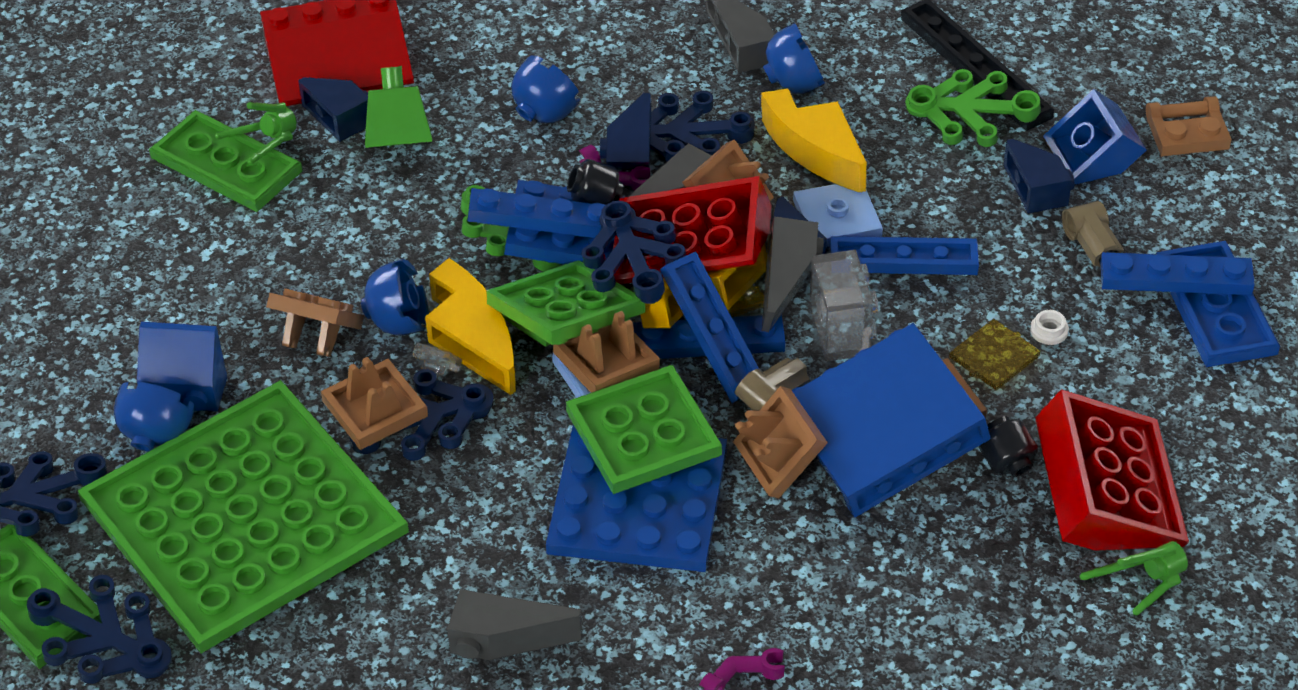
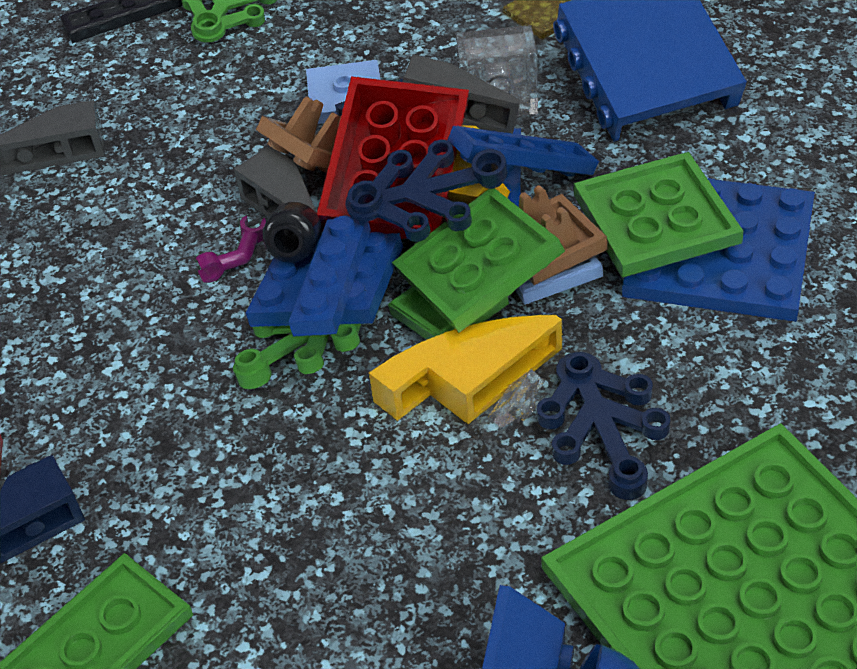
camera: 80 degrees left, 0 degrees up
(277, 123) = (44, 580): bright green plant -> none
(303, 305) = (435, 514): medium nougat plate -> none
(373, 402) = (607, 444): medium nougat plate -> none
(395, 113) = (91, 429): bright green torso -> none
(395, 300) = (423, 432): blue cylinder -> none
(543, 92) = (96, 291): blue cylinder -> none
(629, 136) = (202, 213): dark blue slope -> none
(683, 128) = (183, 226): dark blue plant -> none
(759, 386) = (592, 130): dark tan piece -> none
(778, 441) = (673, 120): medium nougat plate -> none
(792, 62) = (126, 93): blue cylinder -> none
(815, 138) = (248, 87): yellow slope -> none
(912, 254) = (419, 34): blue plate -> none

